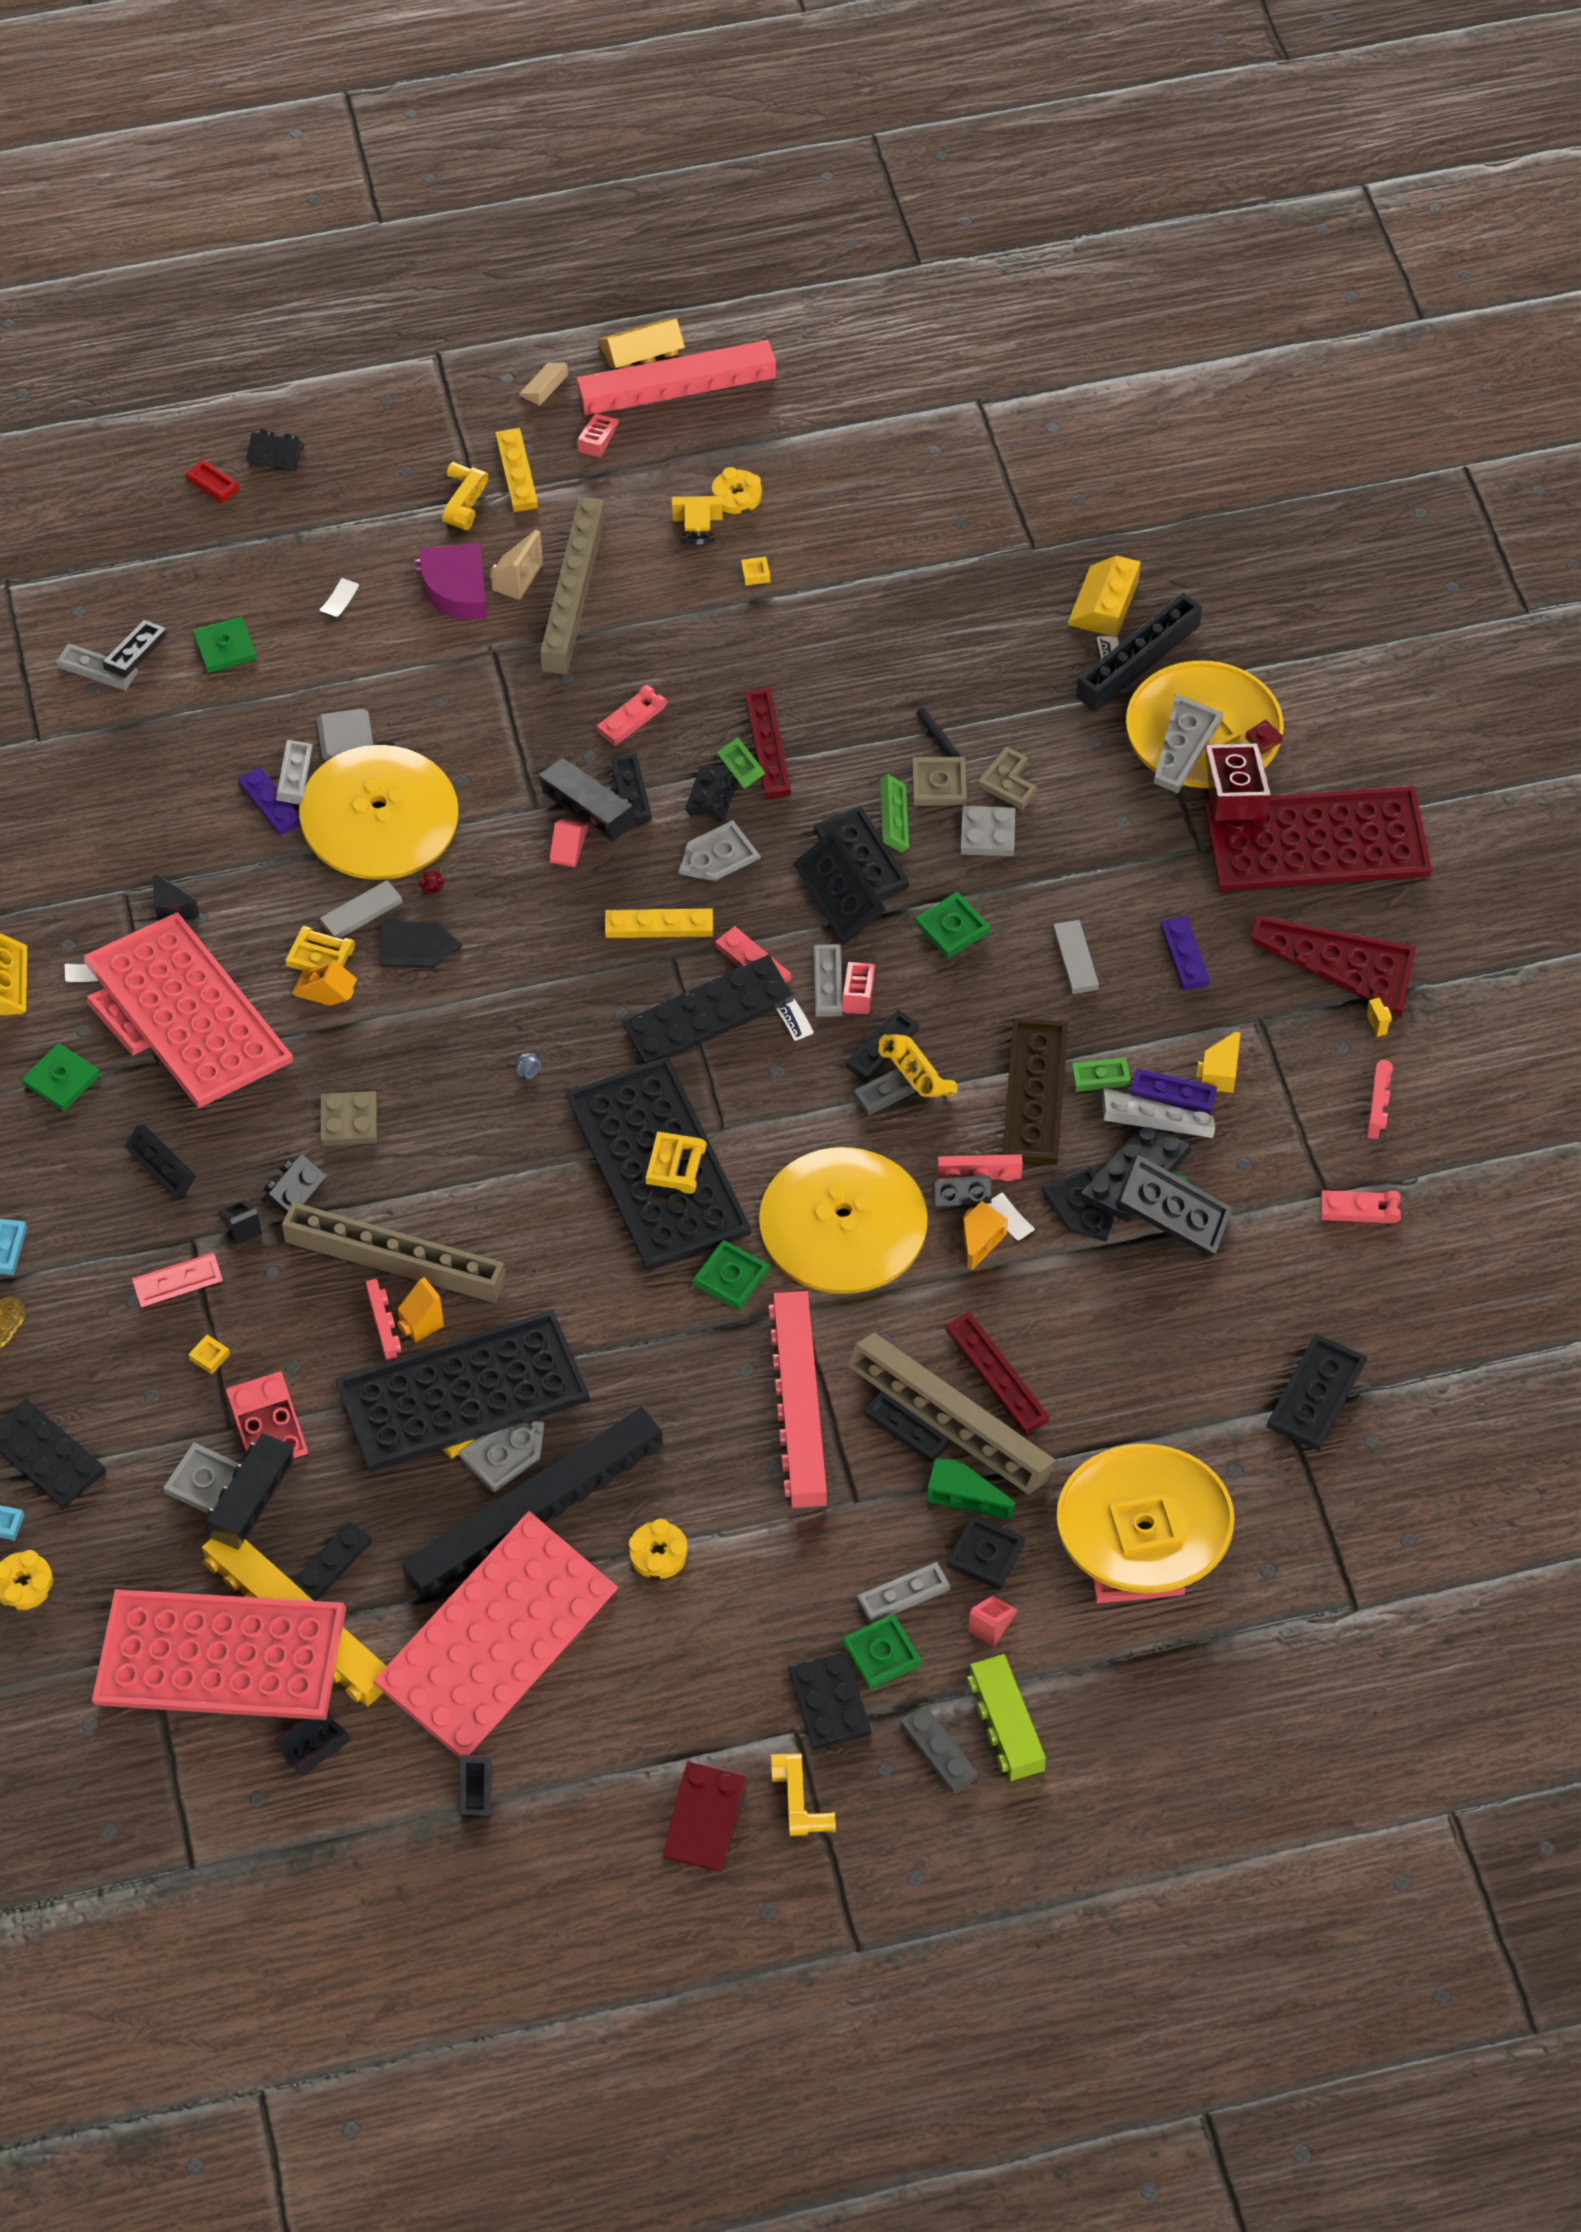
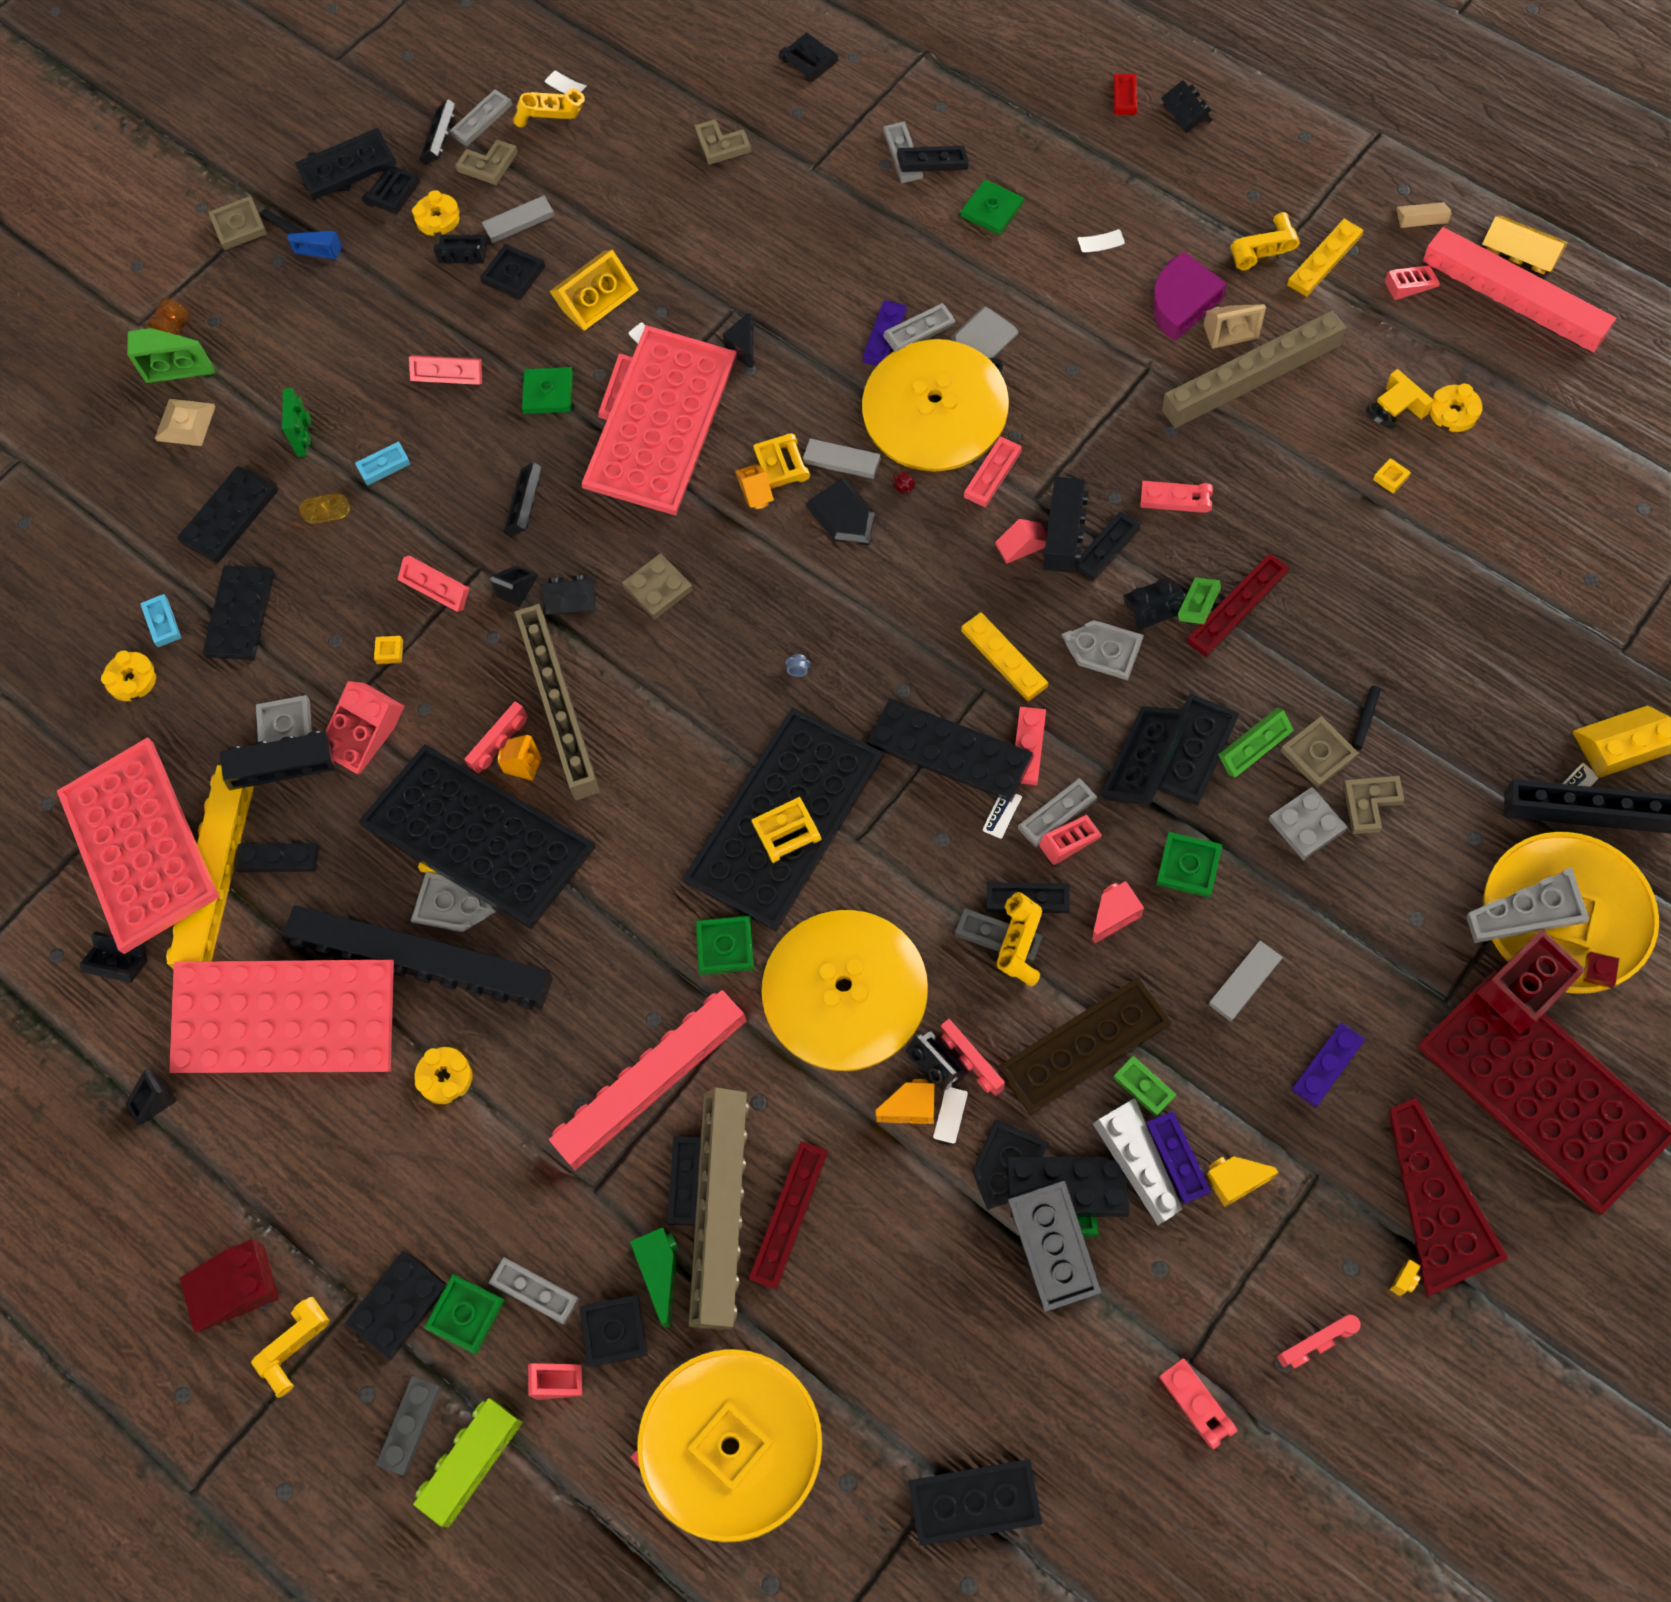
camera: 60 degrees right, 10 degrees up
(485, 816) = (992, 472): none -> coral plate
(946, 995) = (1116, 910): none -> coral slope

